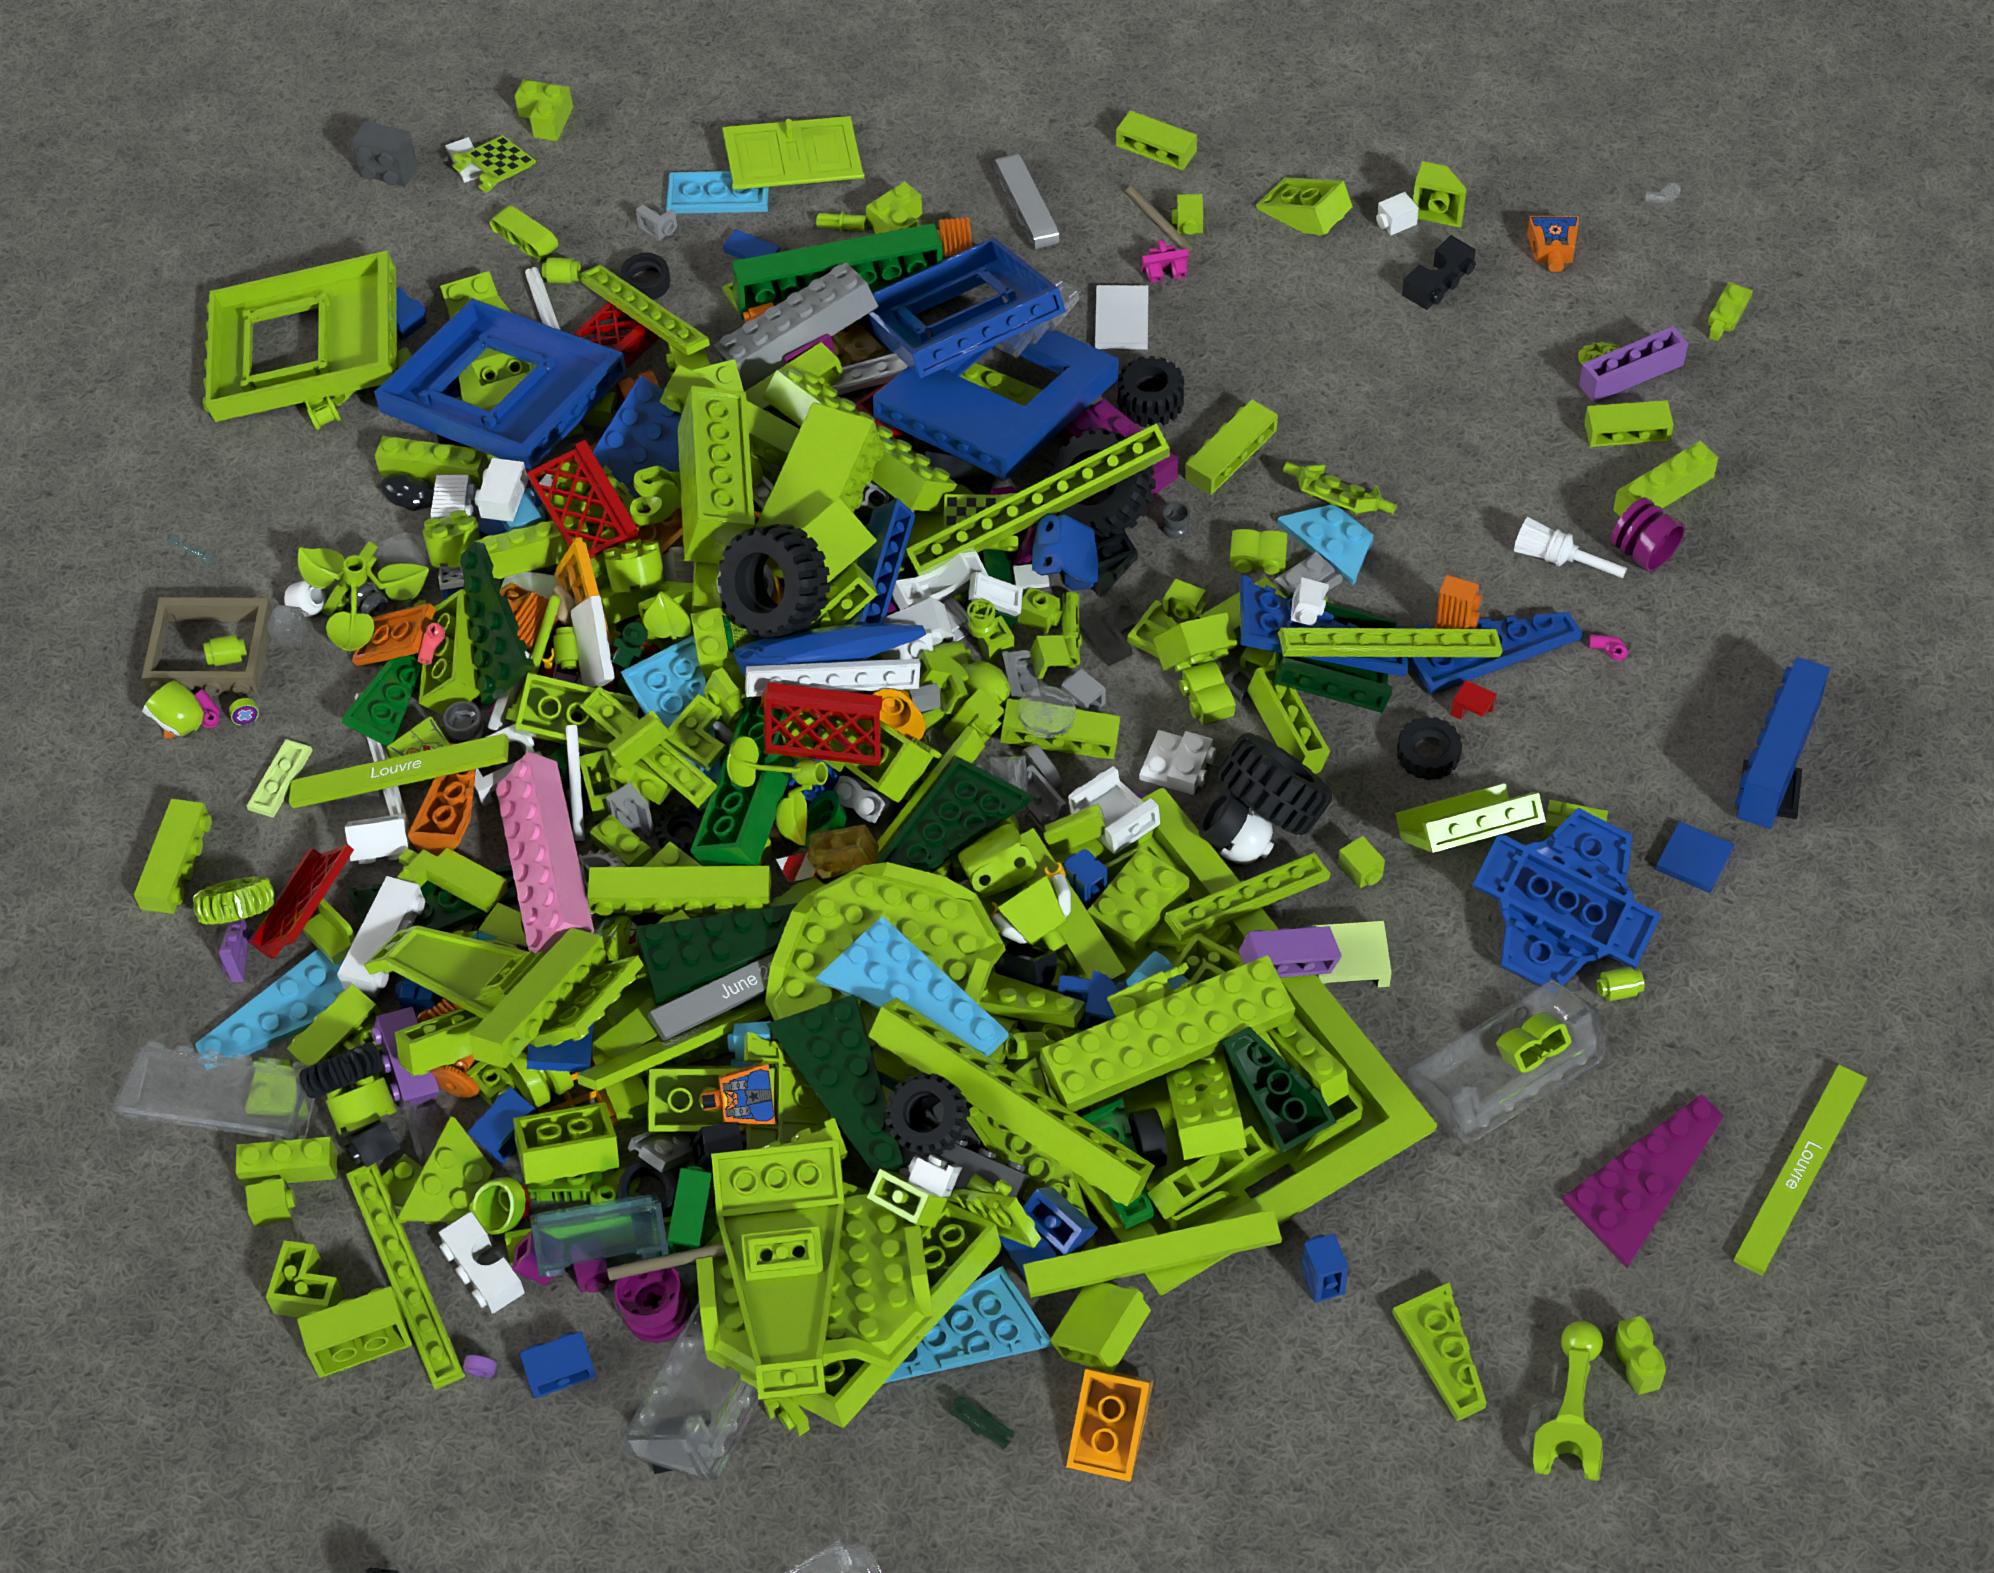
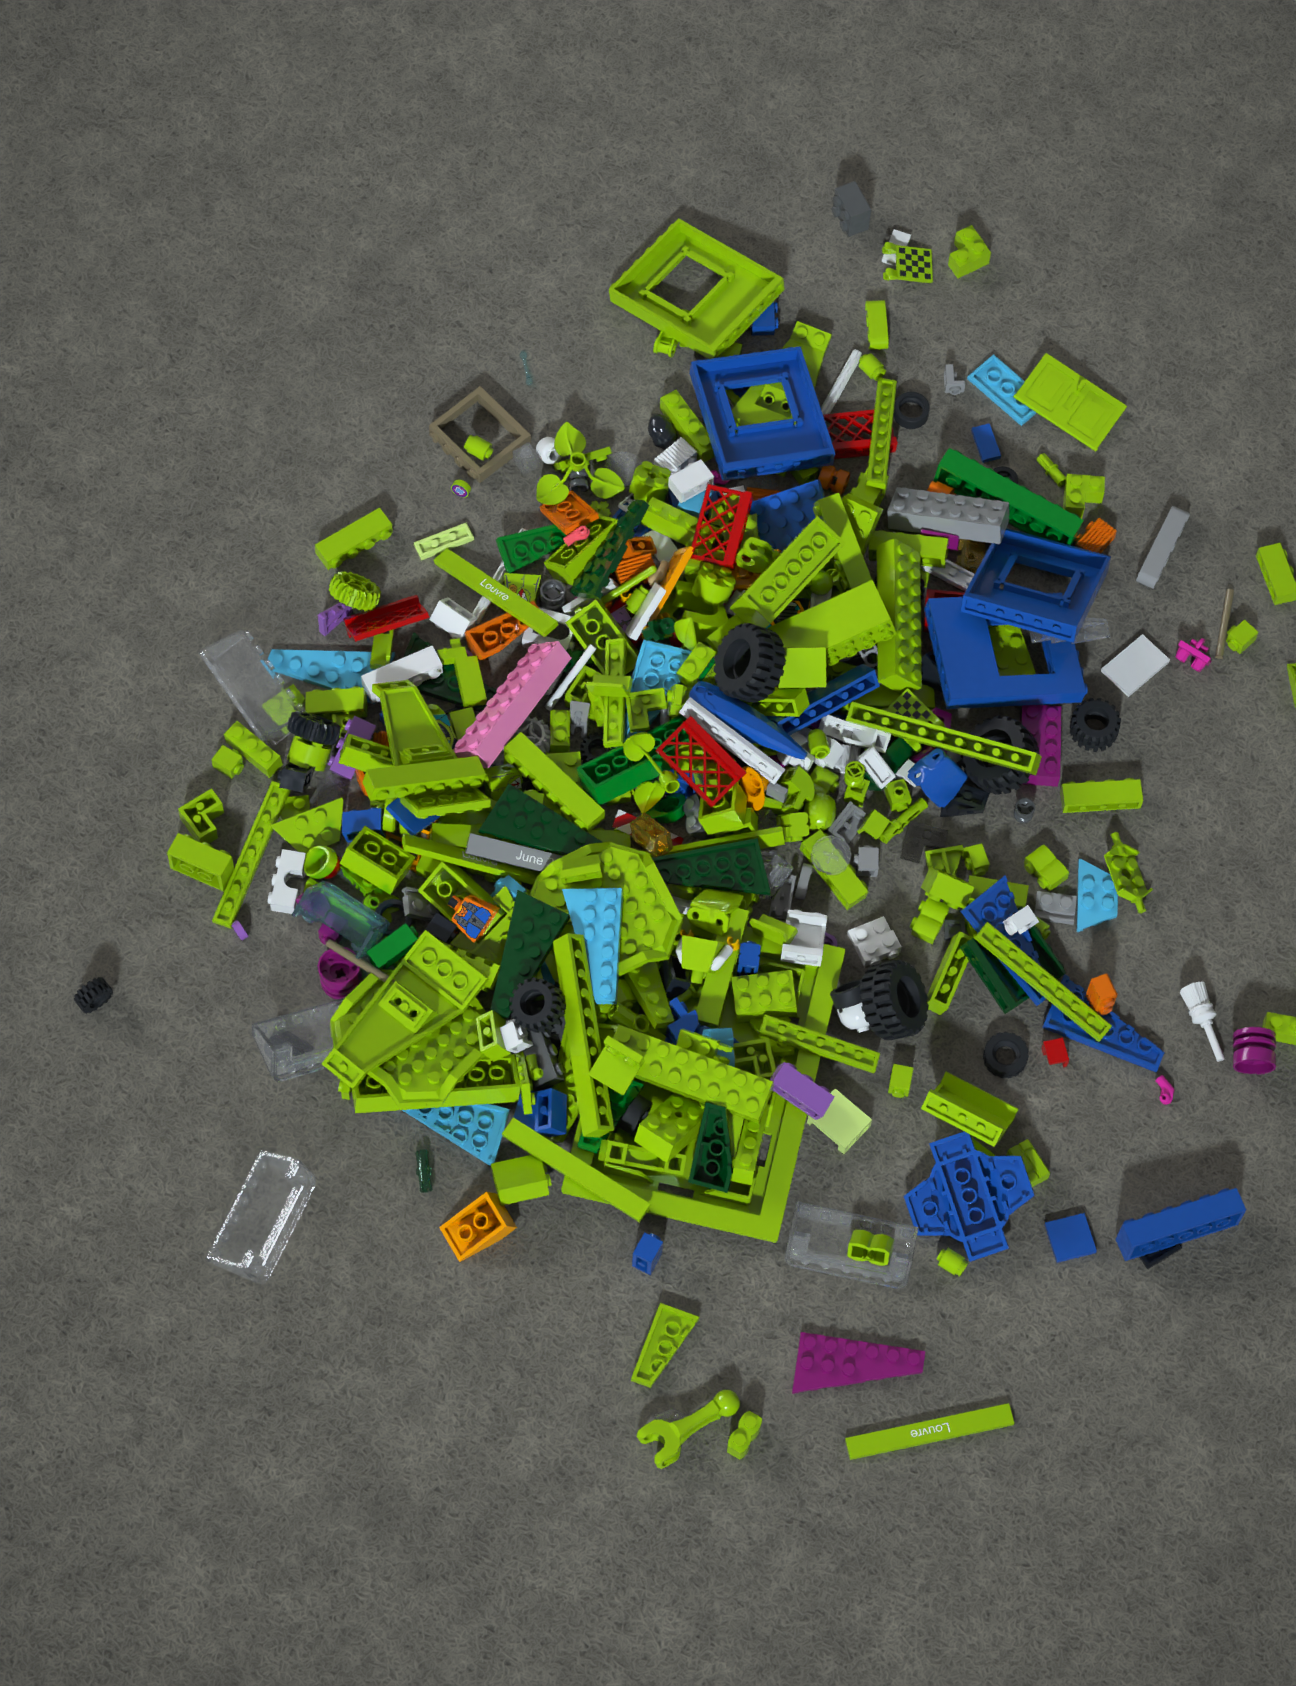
camera: 40 degrees right, 10 degrees up
(175, 709) = (428, 458): lime piece -> none
(210, 710) = (447, 472): dark pink arm -> none
(557, 1364) = (272, 962): blue brick -> none
(813, 940) = (580, 869): none -> lime panel
(917, 613) = (818, 743): none -> lime brick
(1090, 1087) = (616, 1066): none -> lime bracket

